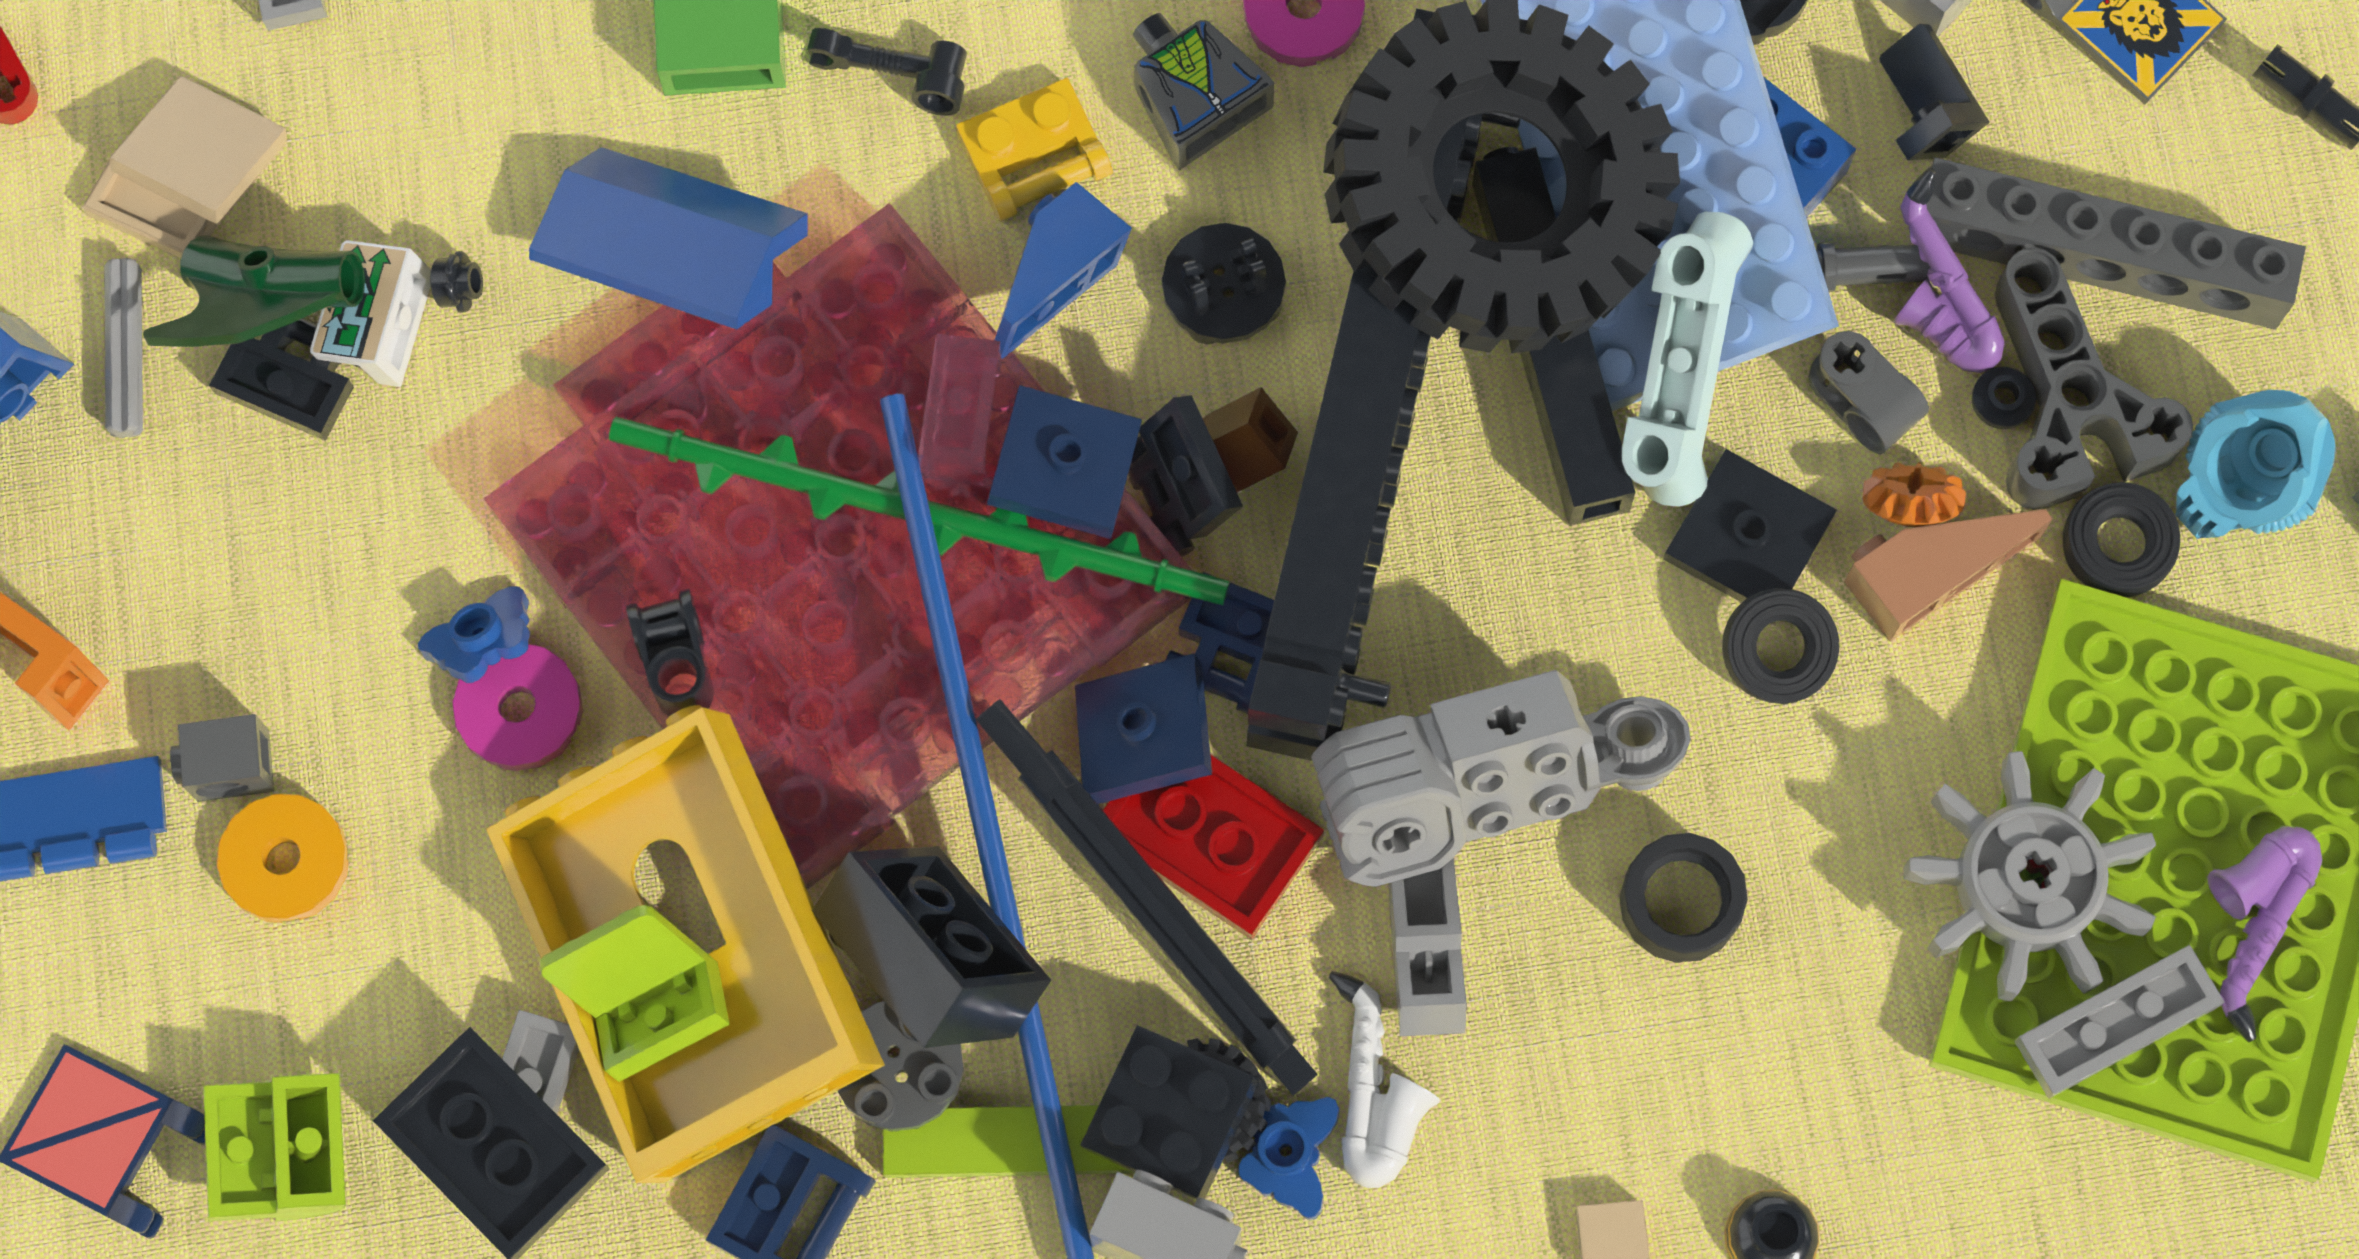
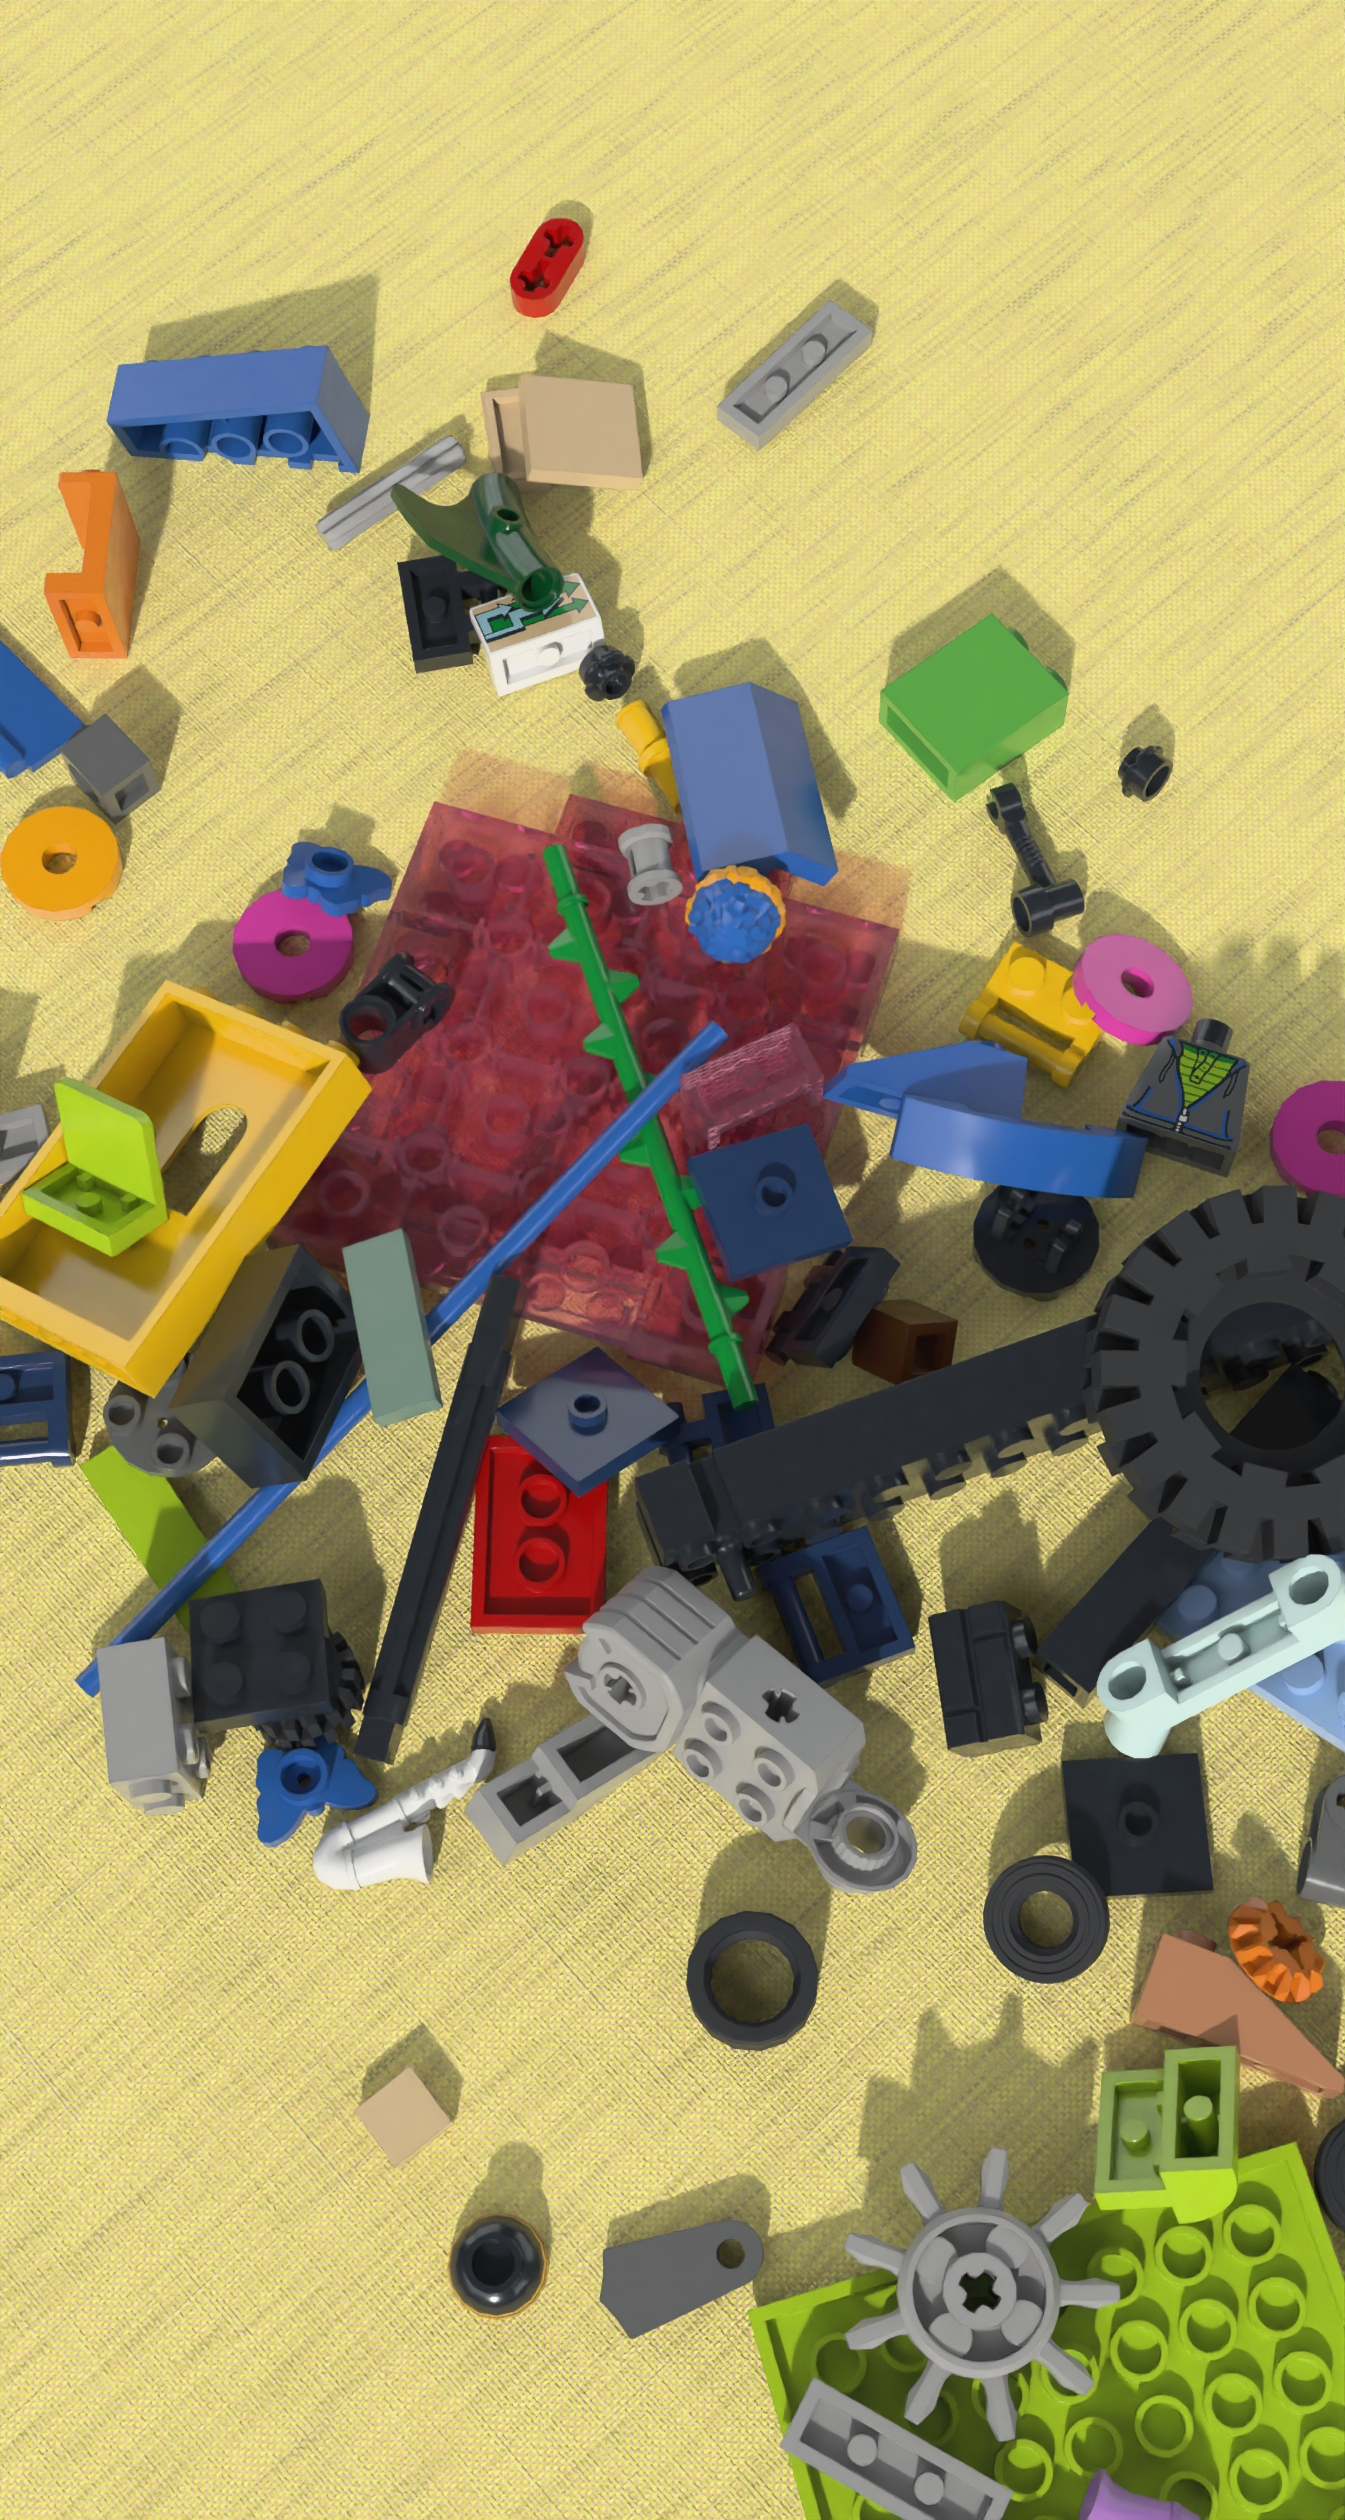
camera: 60 degrees right, 5 degrees down
(563, 291) = (651, 745): none -> yellow pin
(689, 357) = (650, 864): none -> light grey bush
(794, 317) = (735, 914): none -> blue piece
(962, 829) = (392, 1328): none -> sand green tile
(1069, 38) = (1130, 960): none -> dark pink tile
(1154, 248) = (1017, 1150): none -> blue slope
(1434, 622) = (856, 1601): none -> dark blue plate
(1567, 562) = (987, 1679): none -> black brick
(1866, 1102) = (675, 2274): none -> dark grey piece
(2006, 658) = (1171, 2135): none -> lime brick

